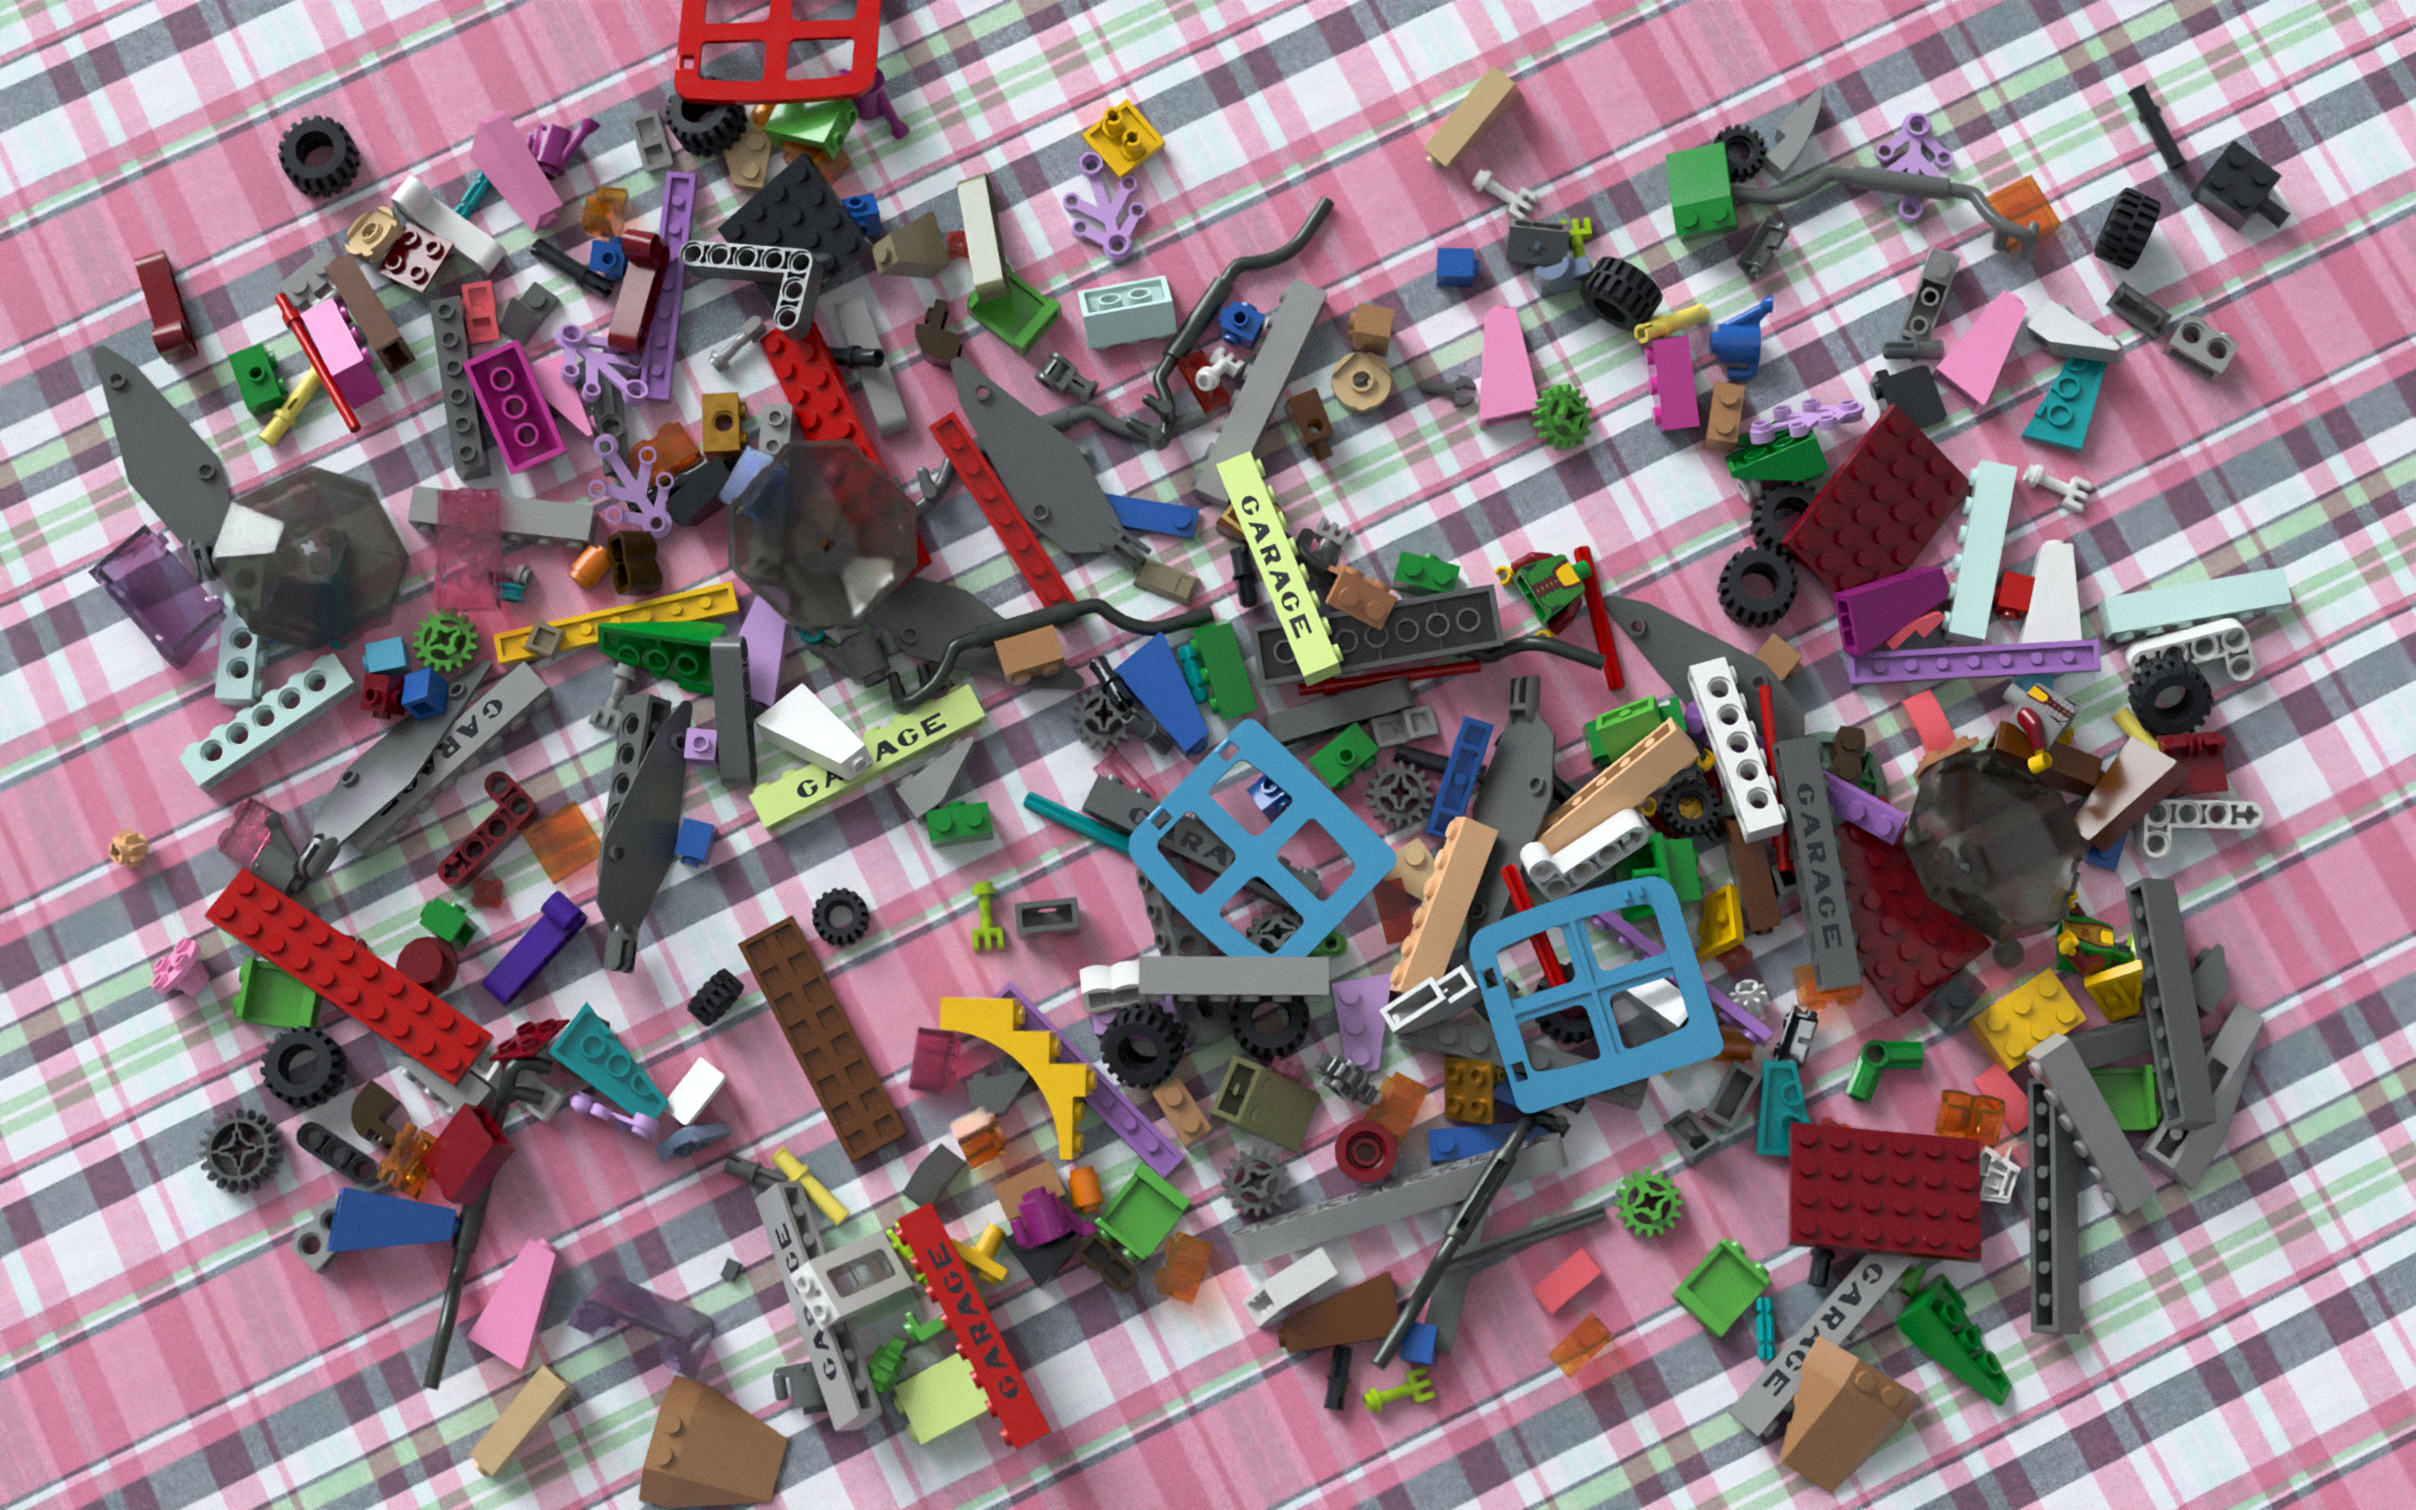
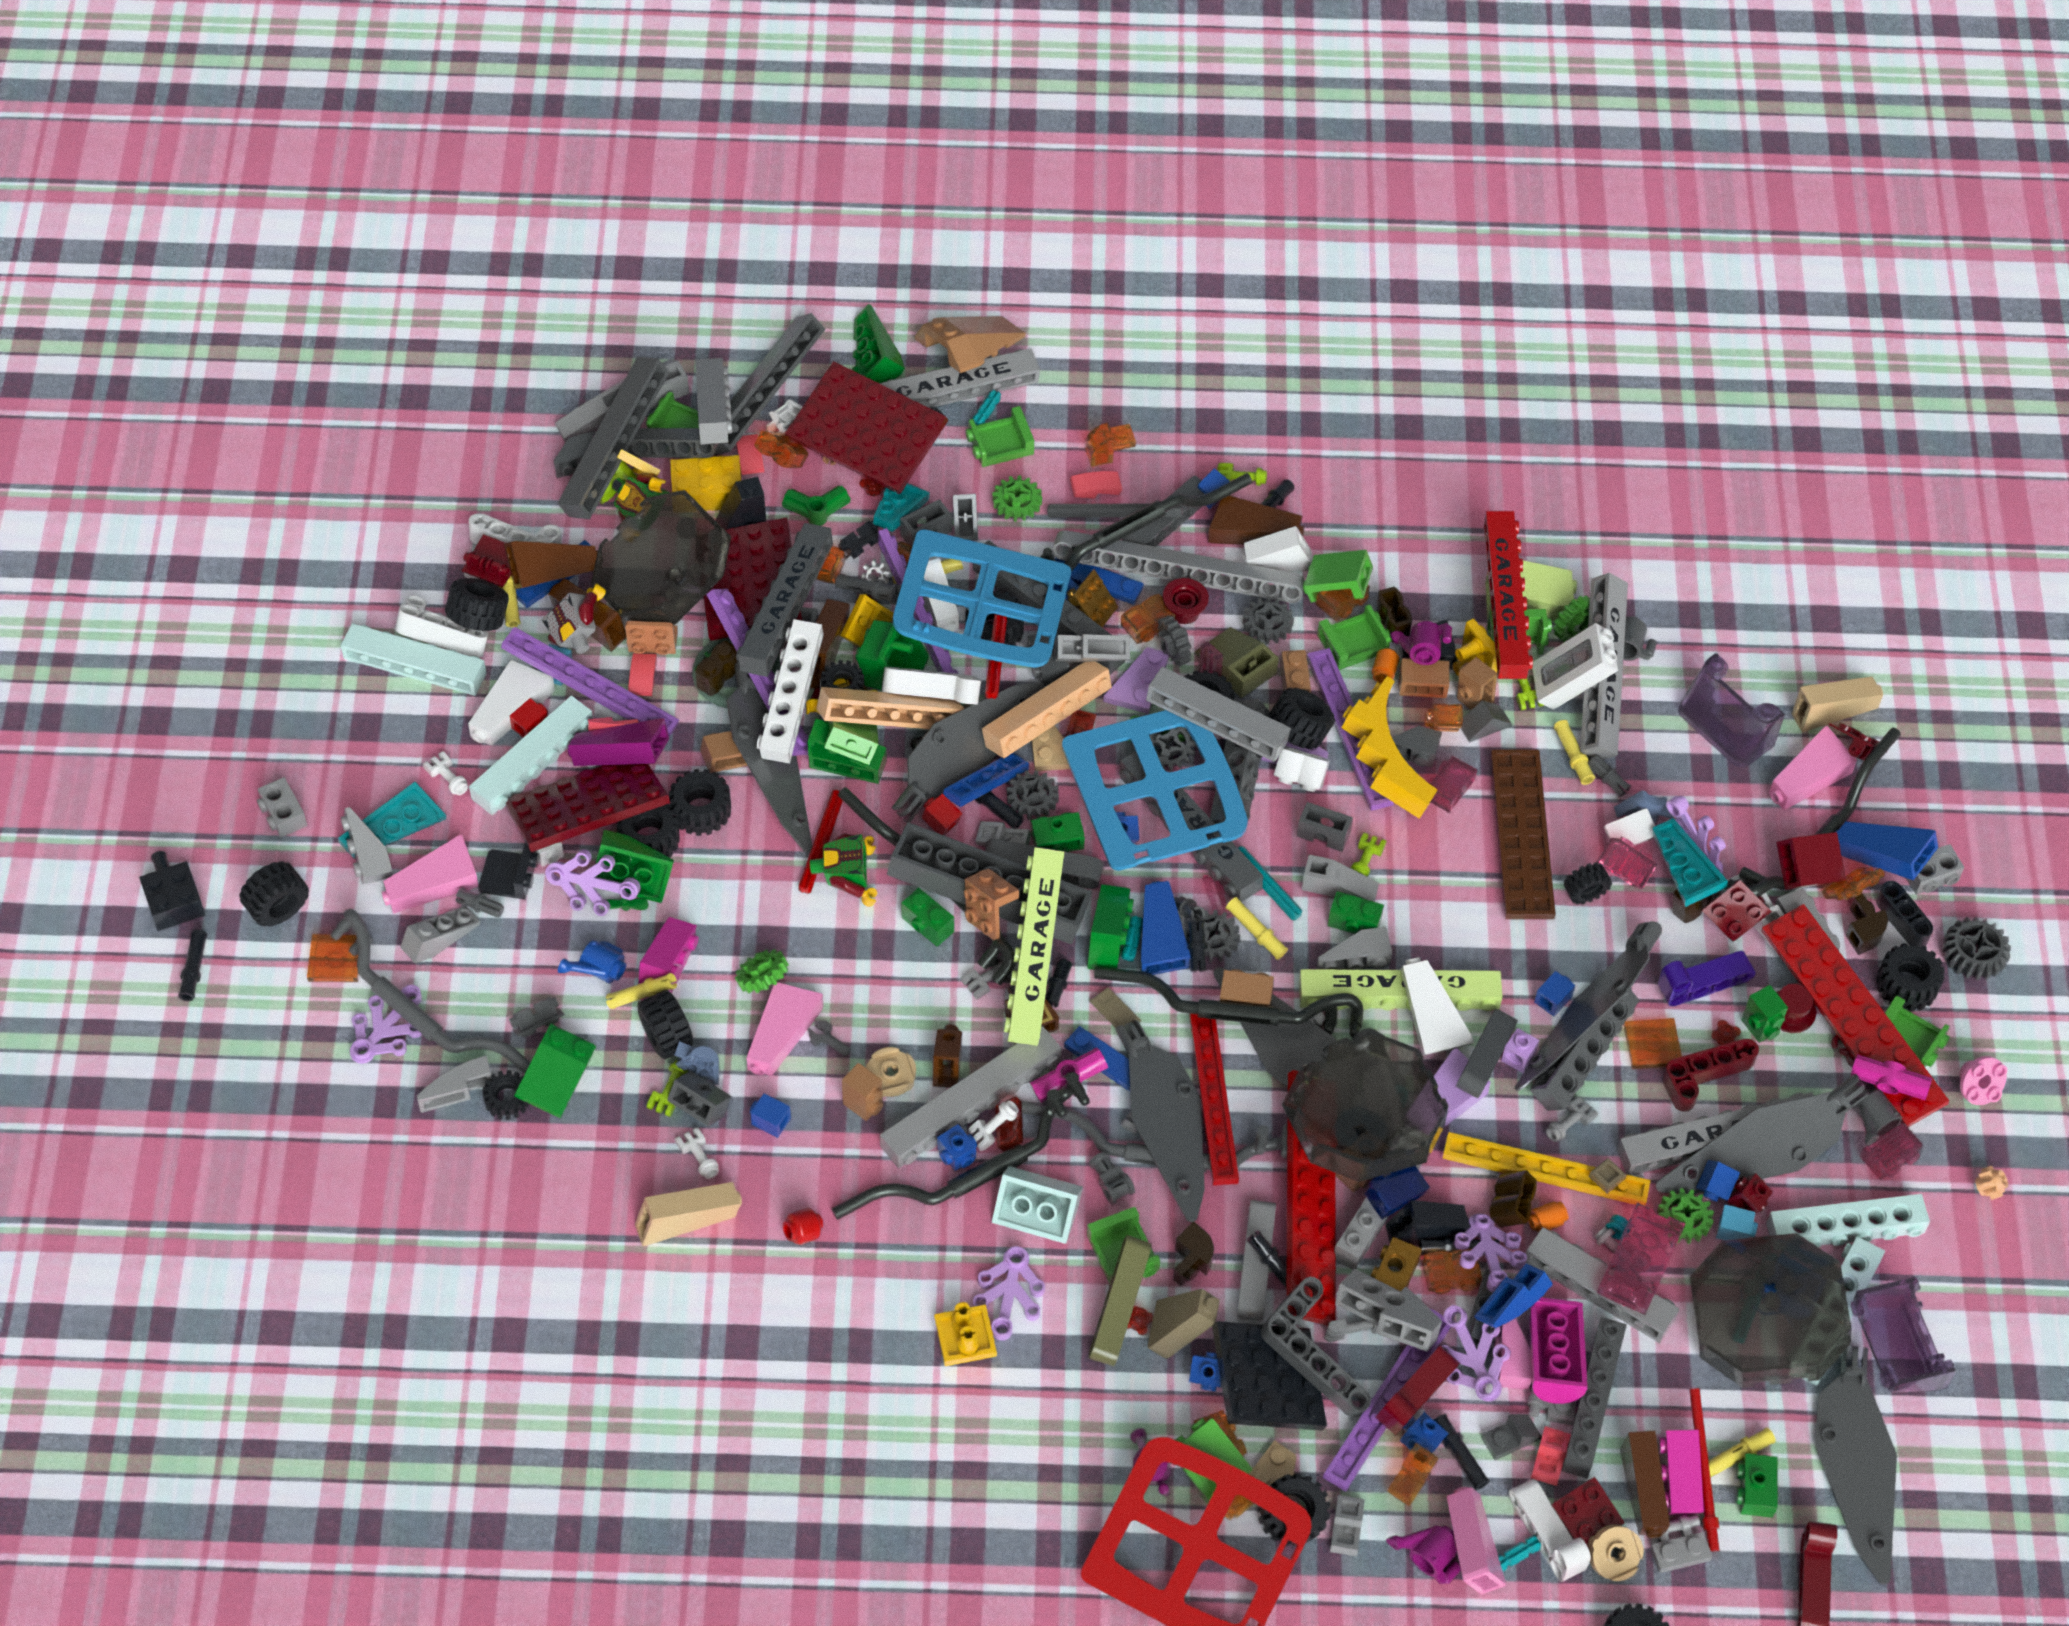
camera: 155 degrees left, 20 degrees down
(274, 900) = (1891, 1077): none -> dark pink piece
(476, 1368) = (1861, 744): none -> dark red hinge
(580, 430) = (1514, 1296): none -> blue slope
(666, 648) = (1498, 1120): green wedge -> none
(677, 356) = (1395, 1313): none -> light grey brick
(681, 1045) = (1627, 863): none -> clear pink brick
(709, 1451) = (1706, 629): medium nougat wedge -> none
(731, 1269) = (1652, 732): dark grey piece -> none
(853, 930) = (1475, 889): black tyre -> none
(962, 1204) = (1476, 683): none -> medium nougat brick
(998, 858) = (1329, 876): none -> light grey slope
(1048, 749) = (1257, 929): none -> light yellow pin
(1161, 480) = (1085, 1066): none -> dark pink piece
(1199, 1280) = (1338, 572): none -> bright green panel
(1349, 166) = (802, 1226): none -> red head
(1485, 707) = (941, 814): none -> red brick
(1723, 417) = (646, 919): medium nougat brick -> none
(1731, 968) = (877, 590): none -> dark grey pin
(1780, 841) = (766, 682): red bar -> none
(2138, 310) = (302, 853): dark grey hinge -> none

